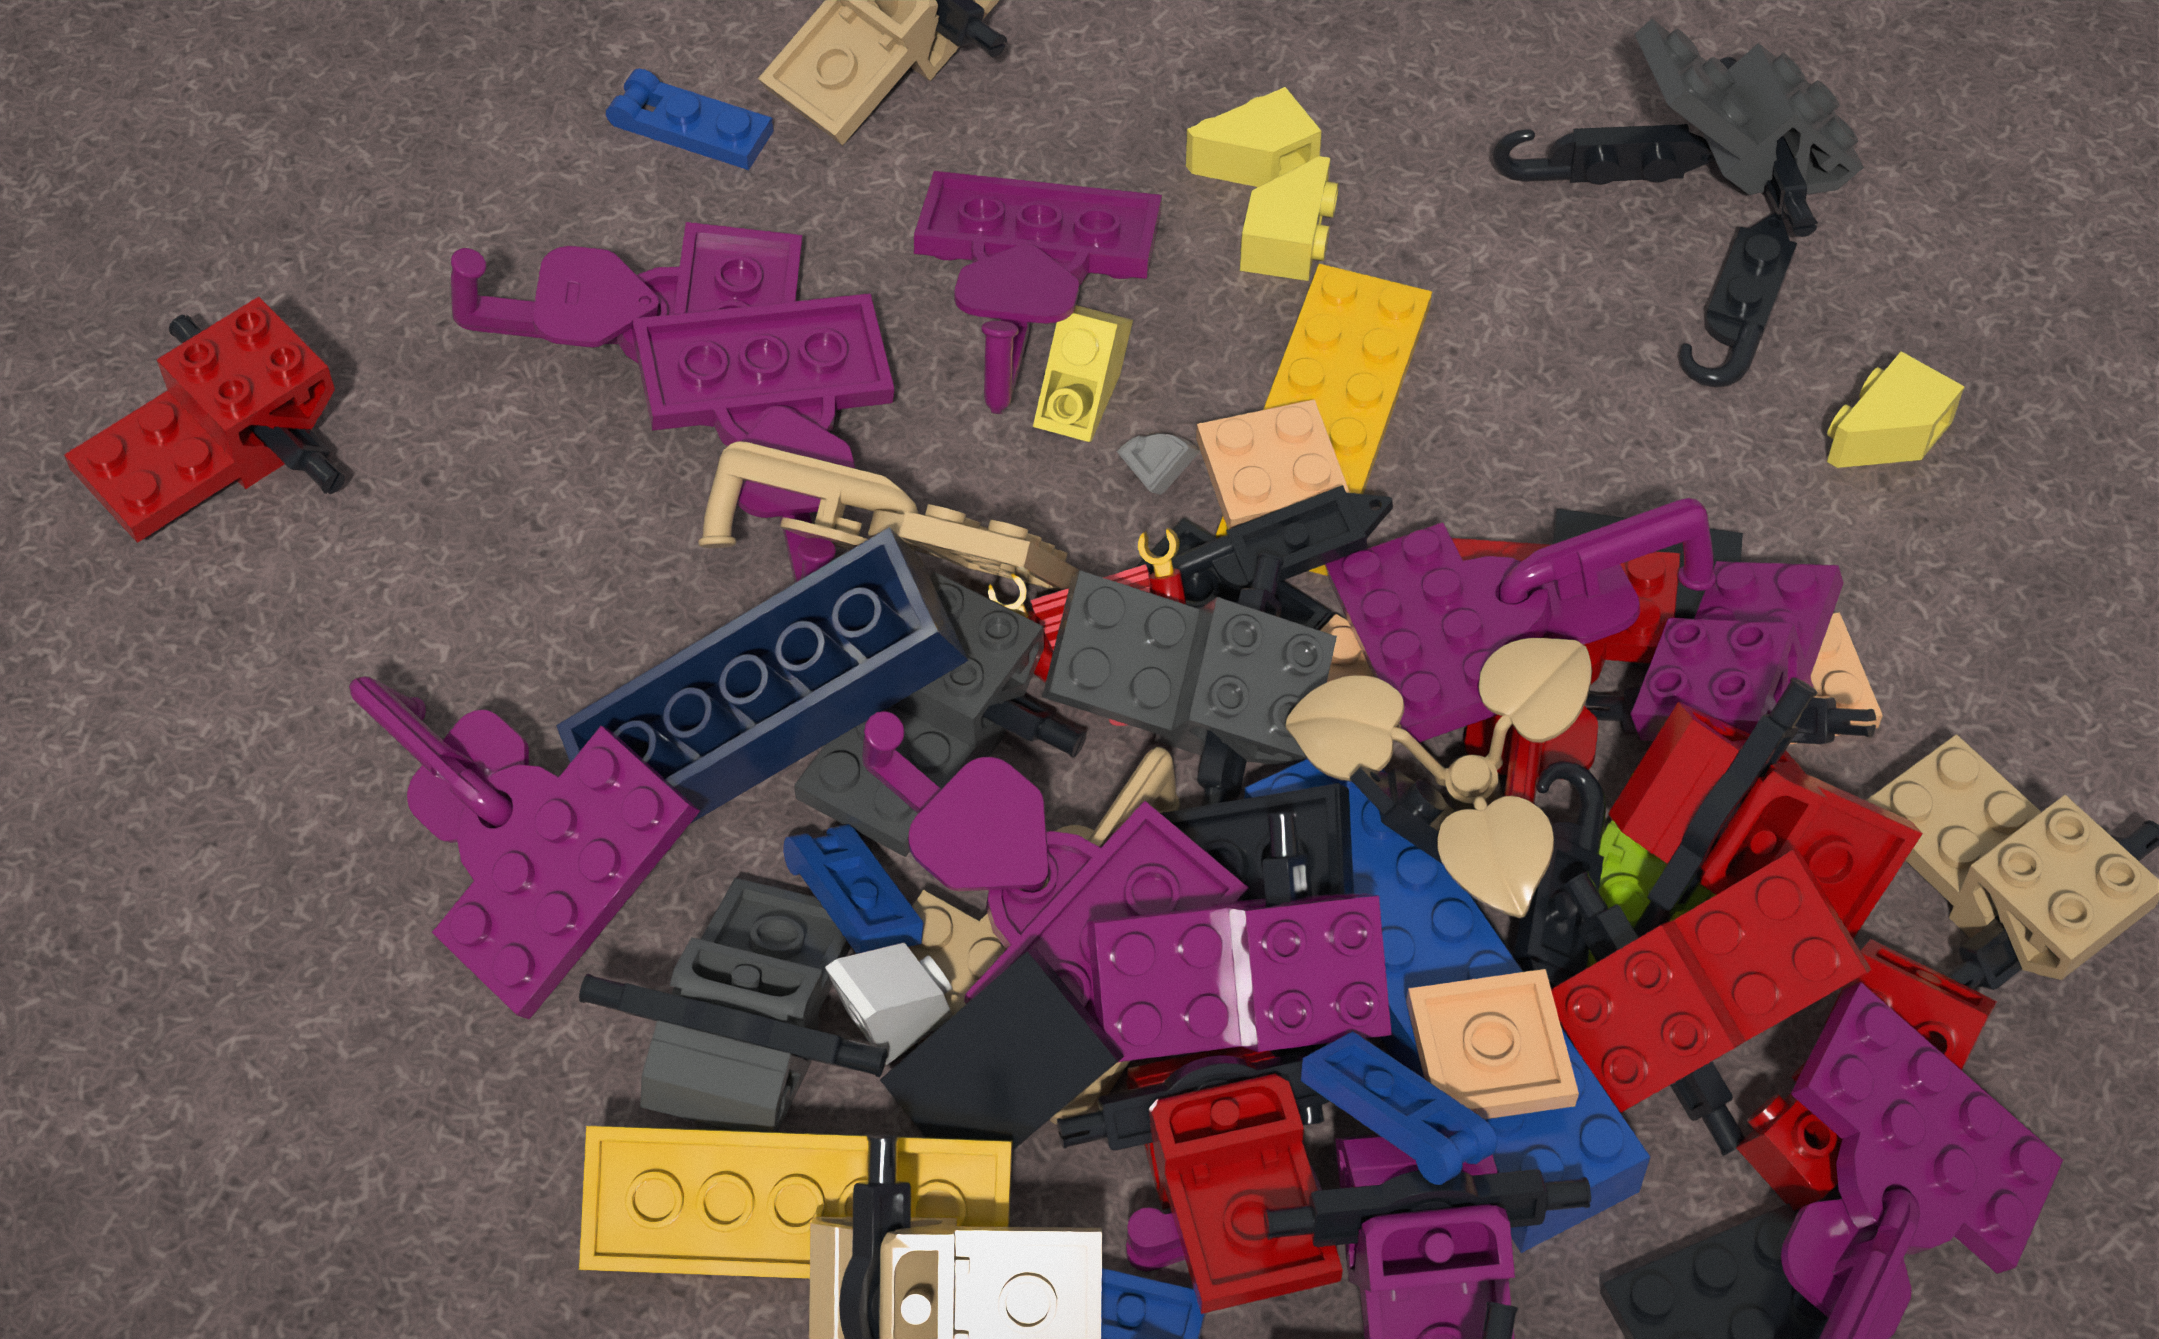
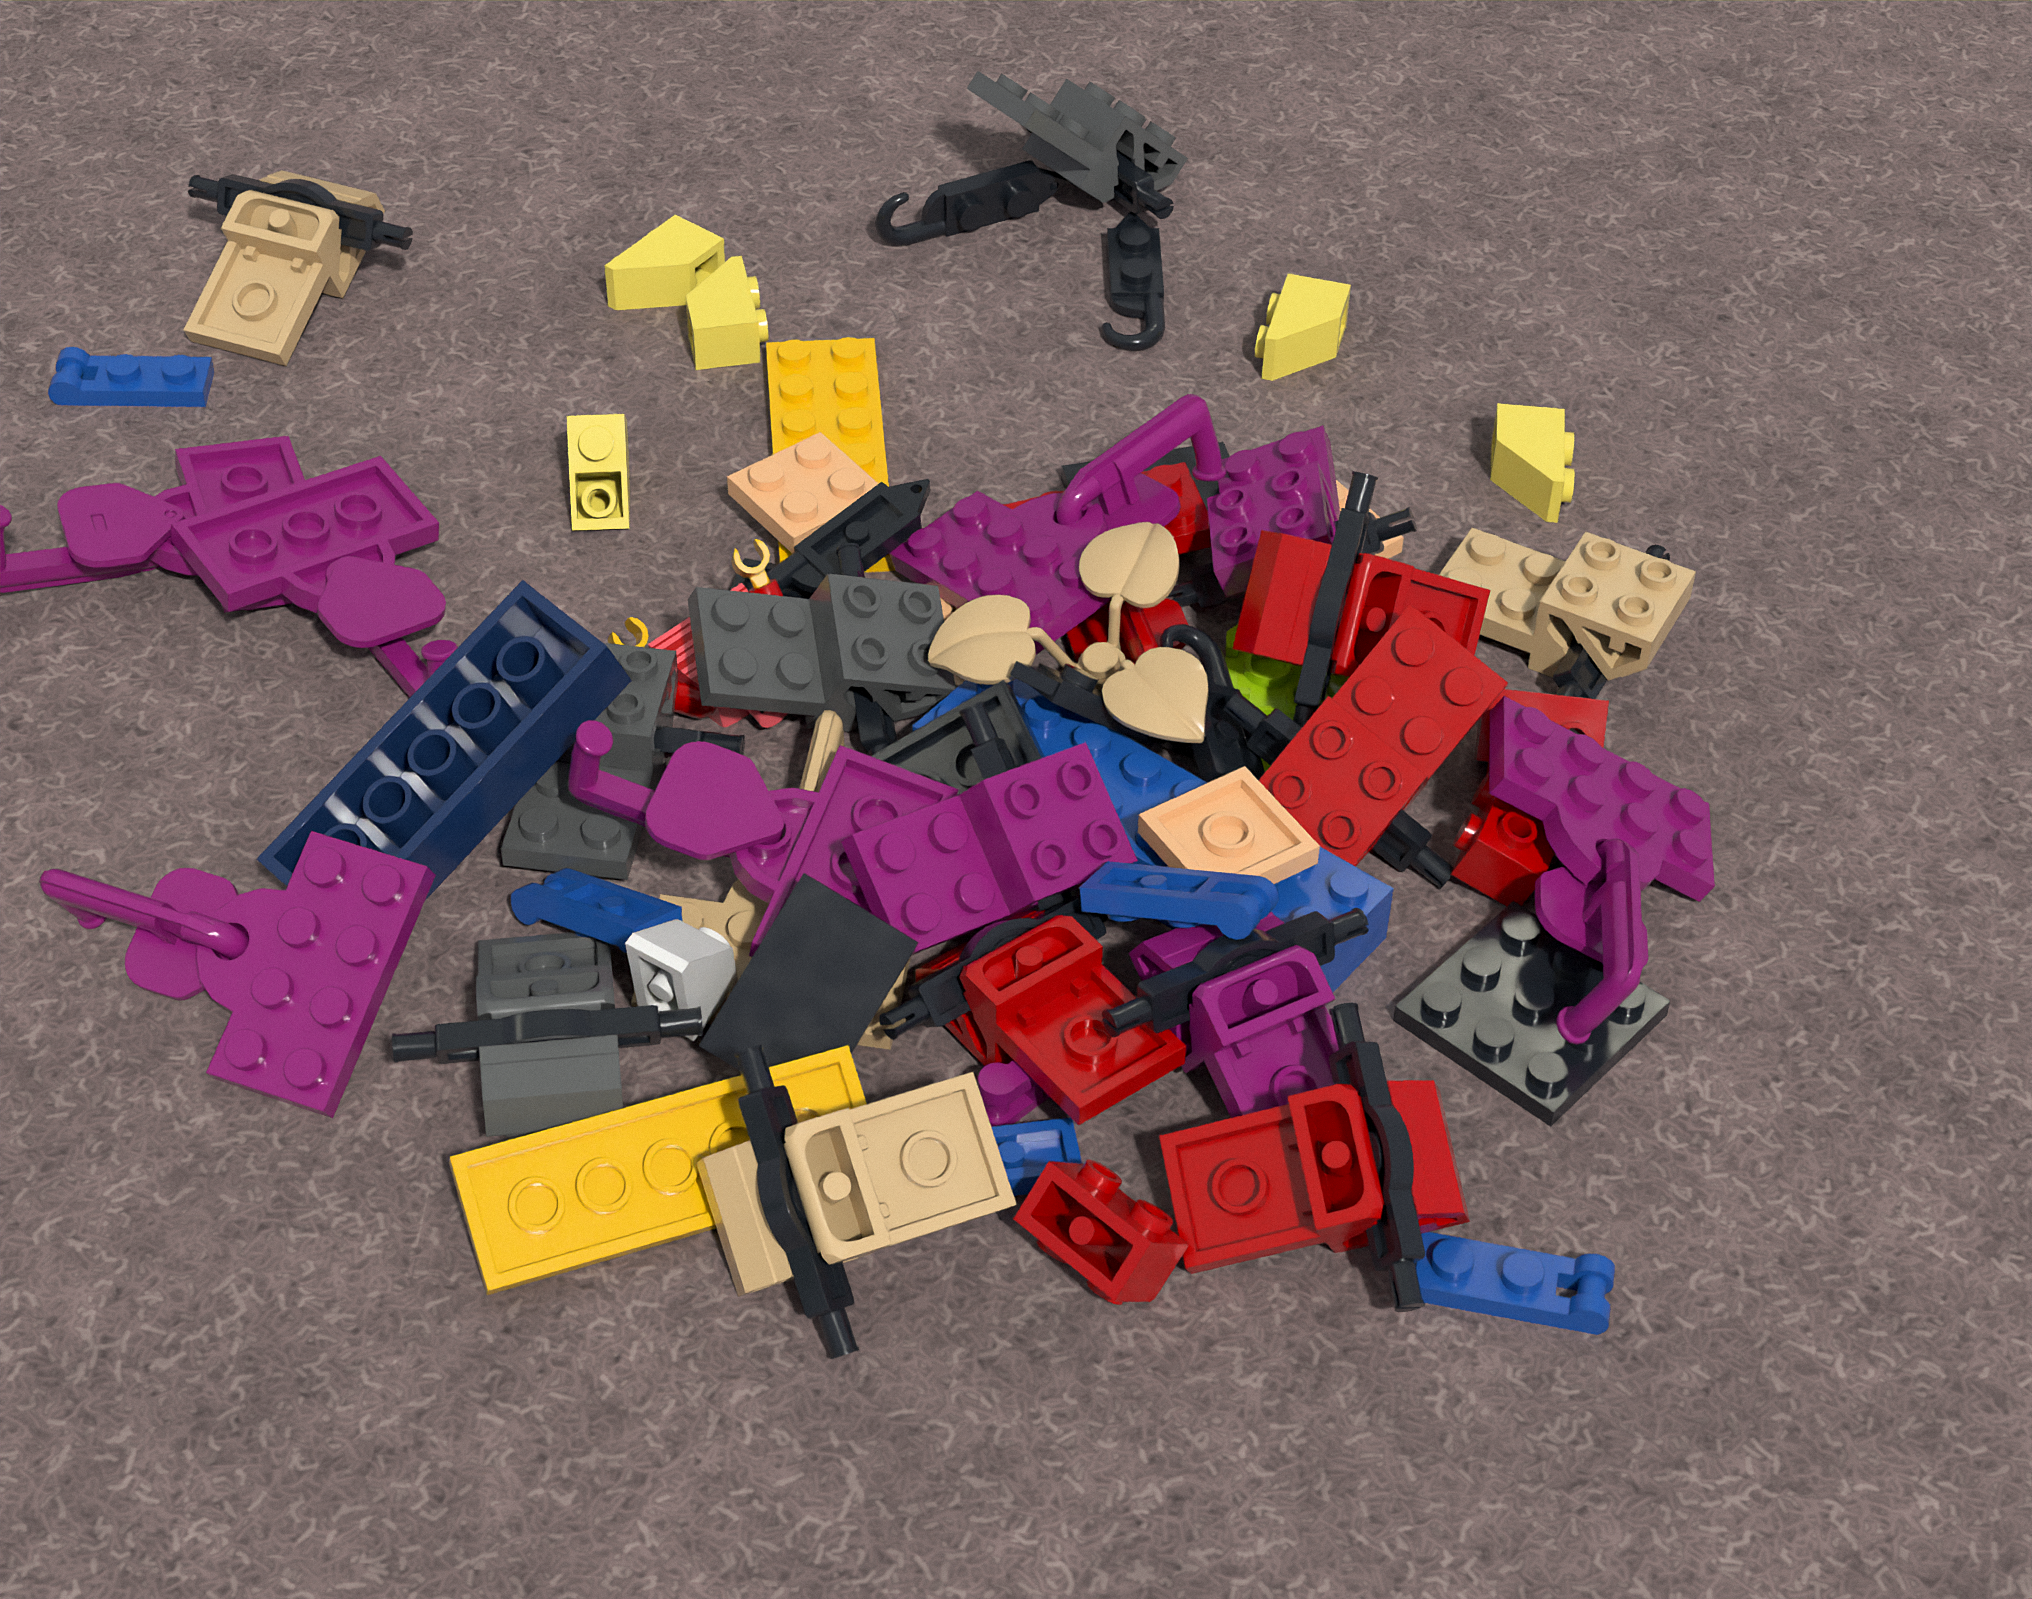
camera: 25 degrees left, 10 degrees down
(940, 532) = (590, 591): tan plate -> none
(1030, 254) = (510, 390): magenta plate -> none
(1158, 459) = (700, 519): light grey tile -> none
(2068, 660) = (1531, 457): none -> light yellow slope

